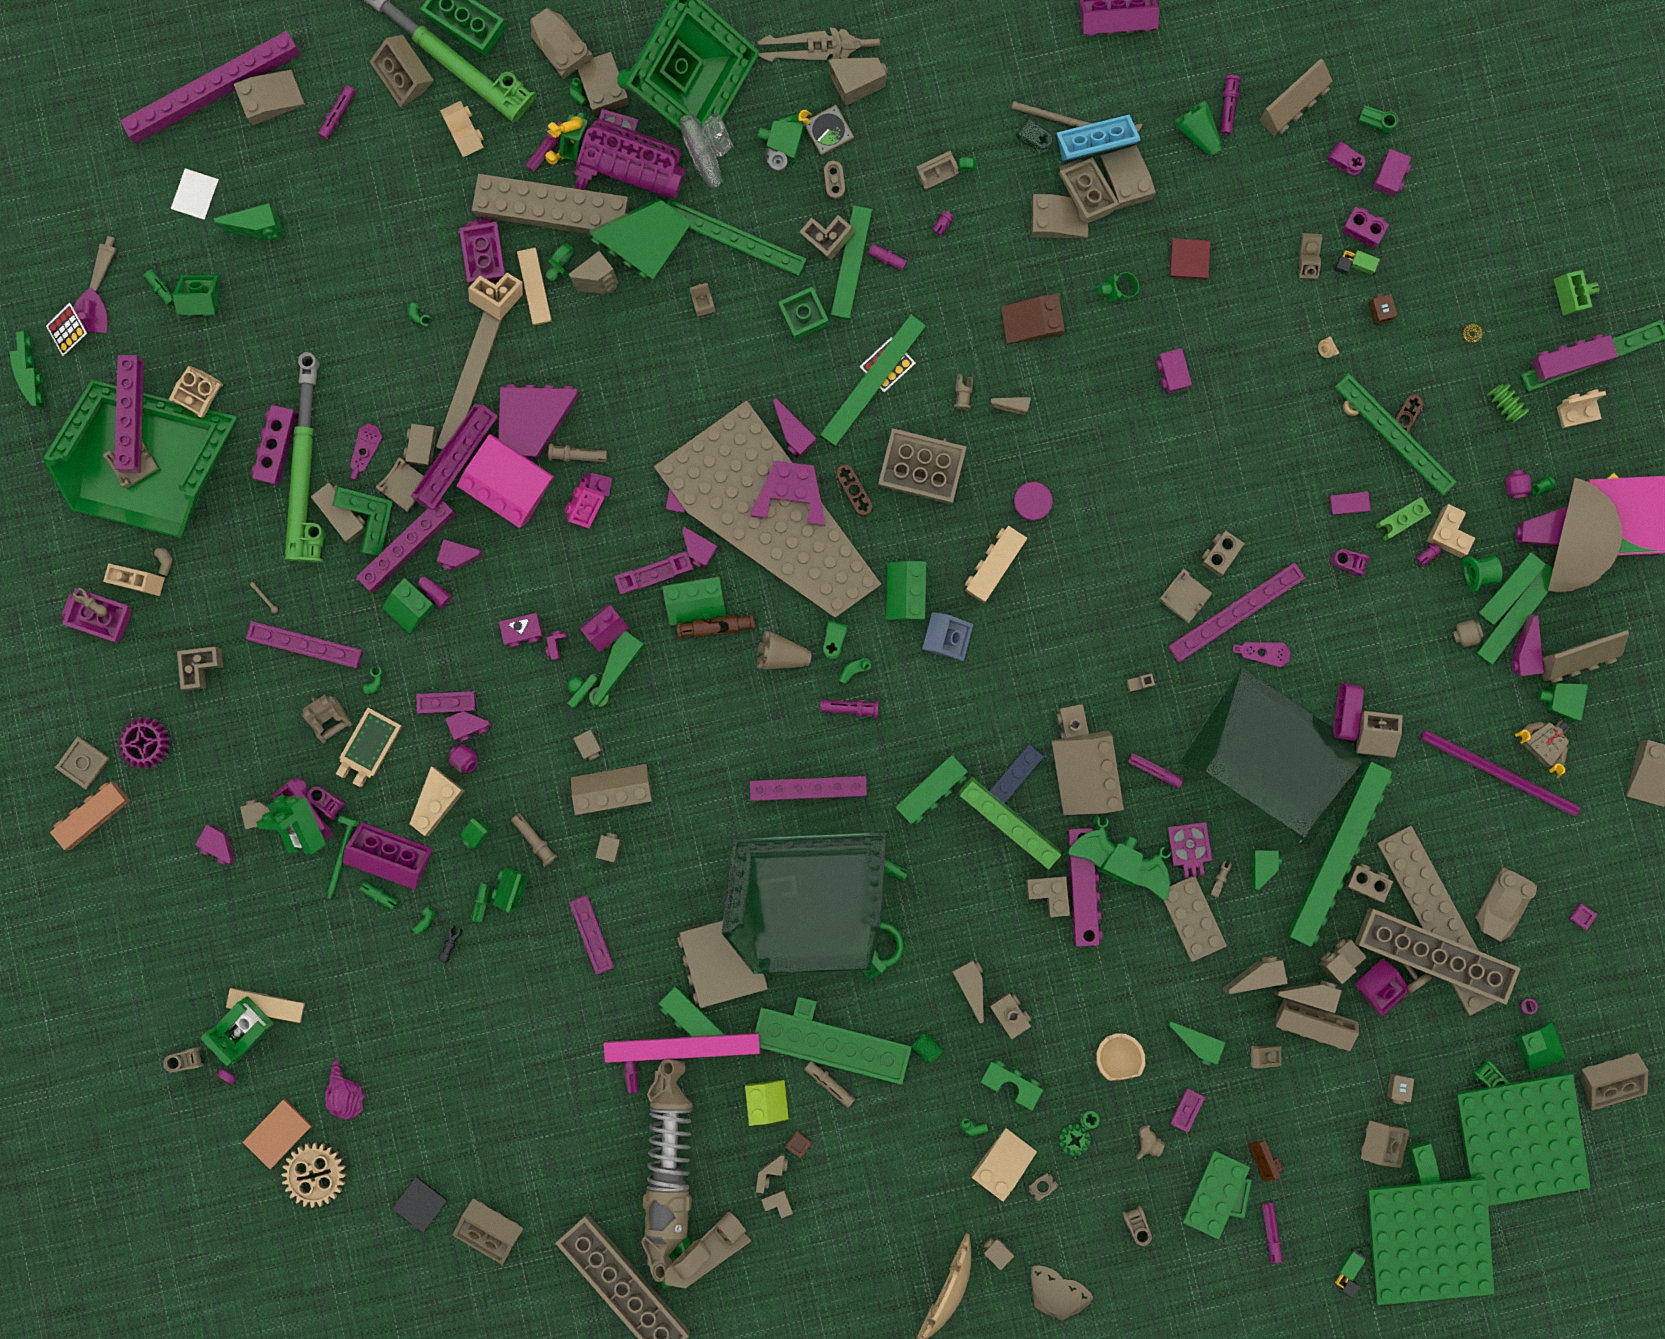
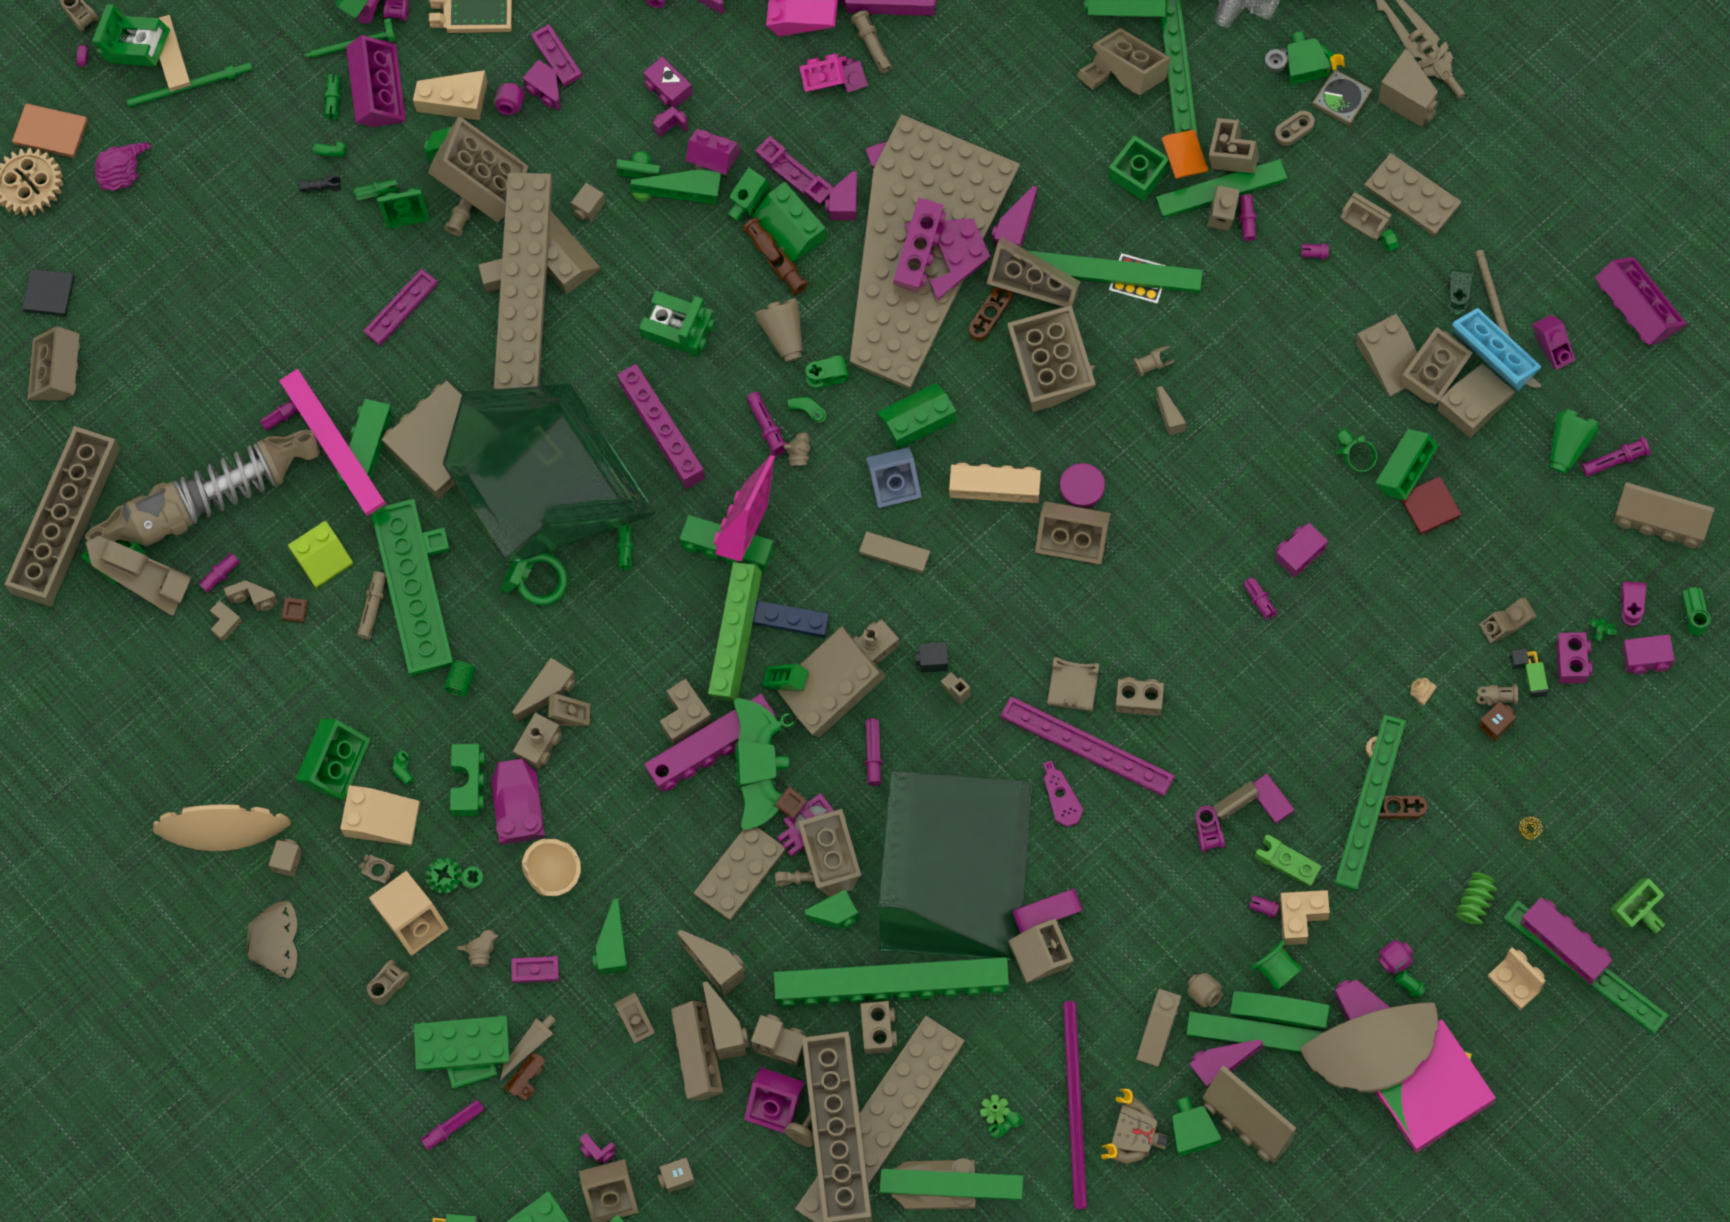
camera: 65 degrees right, 15 degrees down
(309, 966) = (230, 72): none -> green bar
(517, 815) = (476, 168): none -> dark tan slope
(631, 830) = (523, 280): none -> dark tan plate
(653, 611) = (748, 194): none -> green torso
(711, 267) = (1133, 61): none -> dark tan slope
(736, 1187) = (218, 572): none -> magenta pin
(747, 724) = (685, 326): none -> green brick
(766, 512) = (924, 211): none -> magenta brick
(813, 273) = (1185, 154): none -> orange tile
(847, 444) = (1031, 276): none -> dark tan wedge
(871, 269) = (1223, 207): none -> dark tan torso
(886, 695) = (798, 450): none -> dark tan animal
(924, 765) = (745, 513): none -> dark pink slope
(937, 125) = (1412, 194): none -> dark tan plate
(938, 1177) = (332, 759): none -> green slope
(1000, 979) = (568, 711): none -> dark tan slope
(1006, 668) = (894, 552): none -> dark tan tile
(1033, 319) = (1271, 388): reddish brown slope -> none
(1049, 1055) = (517, 802): none -> magenta slope
(1066, 528) = (1072, 532): none -> dark tan slope
(1072, 796) = (788, 677): none -> green slope
(1092, 1182) = (408, 913): none -> tan slope
(1107, 686) = (932, 657): none -> black brick
(1114, 93) = (1554, 341): none -> magenta slope
(1152, 257) = (1406, 464): none -> green brick
(1166, 854) = (790, 803): none -> reddish brown tile
(1193, 423) = (1260, 598): none -> magenta axle
(1218, 845) = (830, 852): none -> dark tan slope
(1238, 1140) = (534, 1037): none -> dark tan bar
(1339, 529) = (1236, 800): none -> dark tan slope
(1347, 1140) = (590, 1149): none -> magenta bracket
(1354, 192) = (1602, 628): none -> green plant
(1362, 300) = (1494, 694): none -> dark tan piece
(1472, 831) = (994, 1114): none -> bright green plant
(1477, 680) = (1158, 1027): none -> dark tan slope
(1488, 824) = (1013, 1121): none -> green arm
(1520, 895) = (951, 1184): none -> green tile

